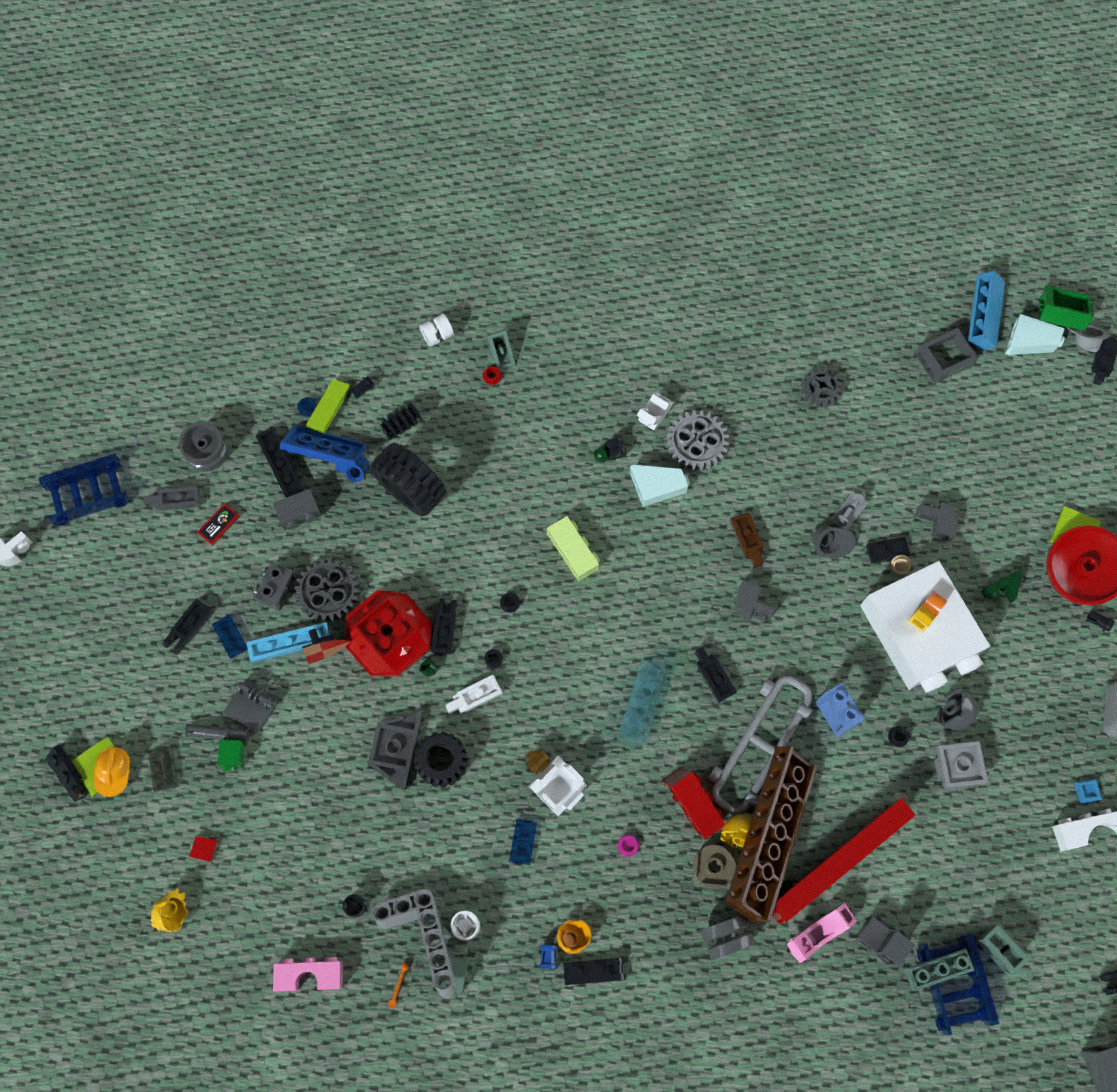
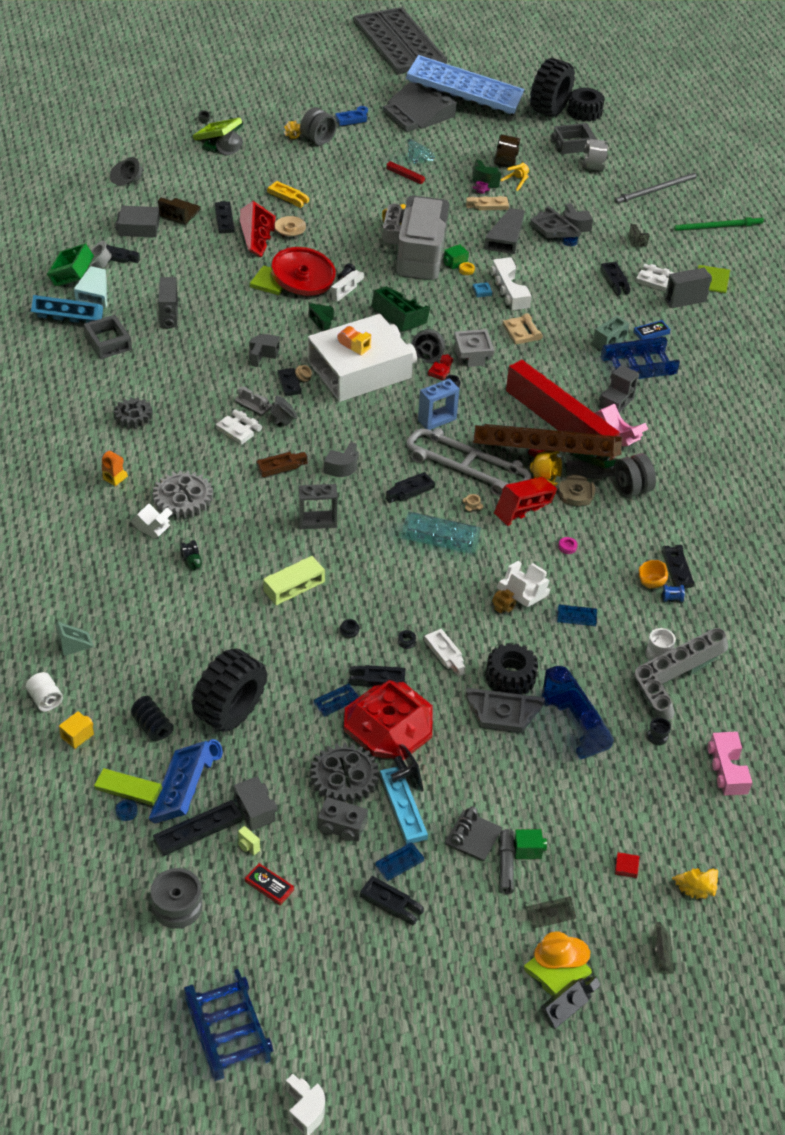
camera: 95 degrees left, 25 degrees down
(106, 868) = (662, 950): none -> clear smoke slope
(174, 498) = (238, 929): dark grey hinge -> none
(259, 505) = (248, 841): none -> yellowish green plate
(362, 387) = (105, 757): black pin -> none
(379, 829) = (564, 692): none -> clear blue windscreen
(392, 1003) = (737, 704): orange hinge -> none
(393, 360) = (76, 729): none -> yellow brick
(427, 602) = (338, 702): none -> clear blue tile
(428, 668) = (421, 691): dark green hinge -> none
(492, 370) = (100, 648): red plate -> none
(658, 483) = (227, 521): light aqua slope -> none
(667, 567) = (326, 519): none -> dark grey window
(696, 738) = (472, 502): none -> tan plate
(726, 372) = (113, 466): none -> orange leg
(804, 491) = (234, 429): none -> white plate
(922, 724) = (441, 369): none -> red plate
(928, 972) = (633, 361): sand green tile -> none
(1005, 413) = (168, 302): none -> dark grey window
(1007, 828) = (518, 332): none -> tan plate
(1024, 679) = (399, 310): none -> dark green wedge
(1025, 1013) = (652, 330): none -> tile
(1073, 619) = (346, 285): none -> white hinge

